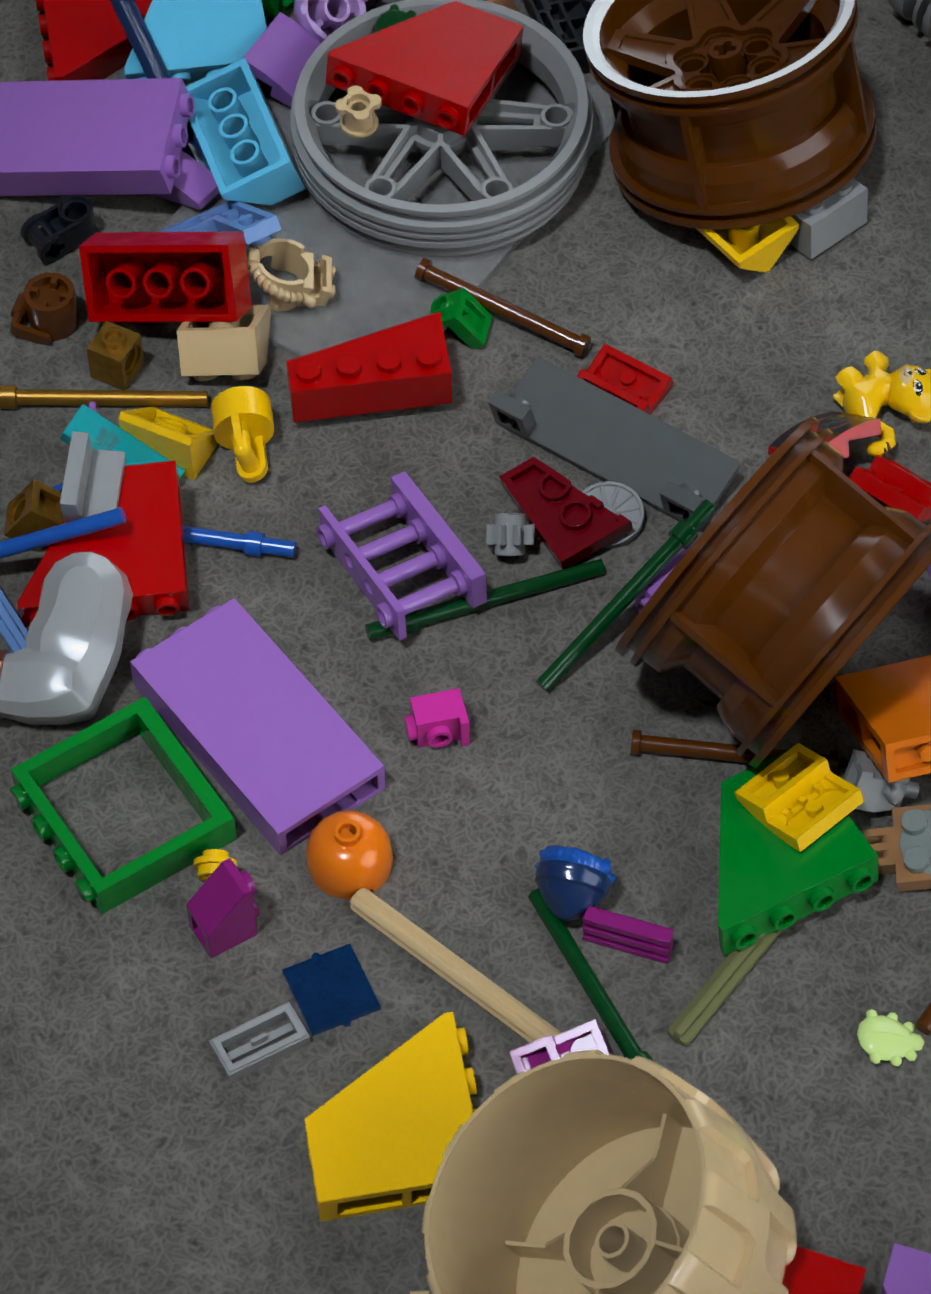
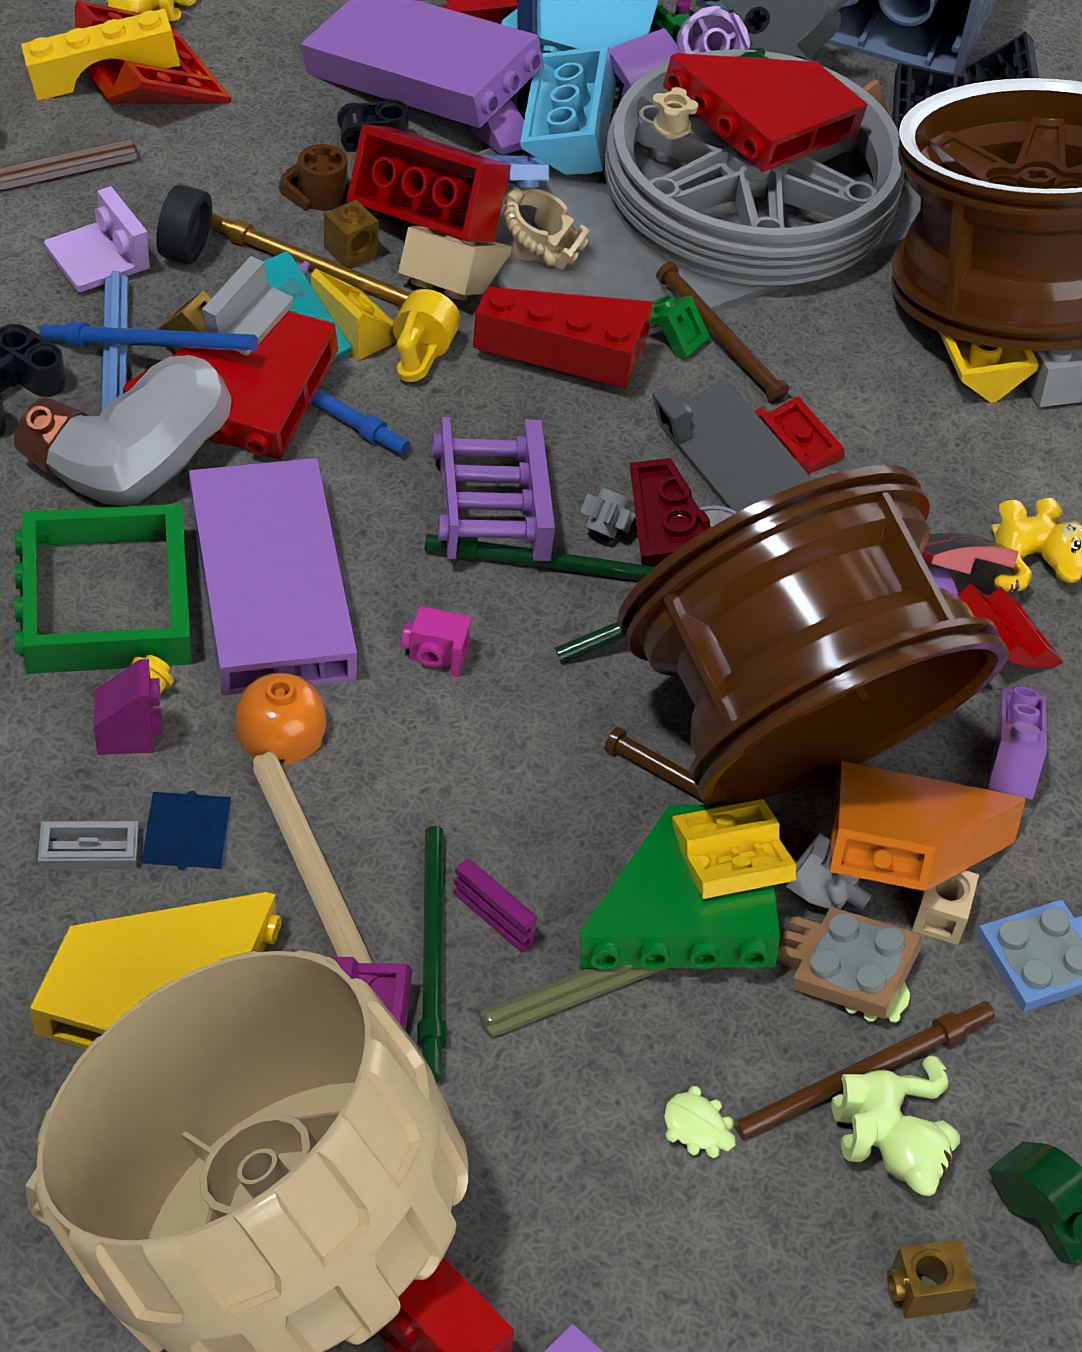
camera: 20 degrees right, 5 degrees down
(572, 880) = (468, 829): dark blue hair -> none

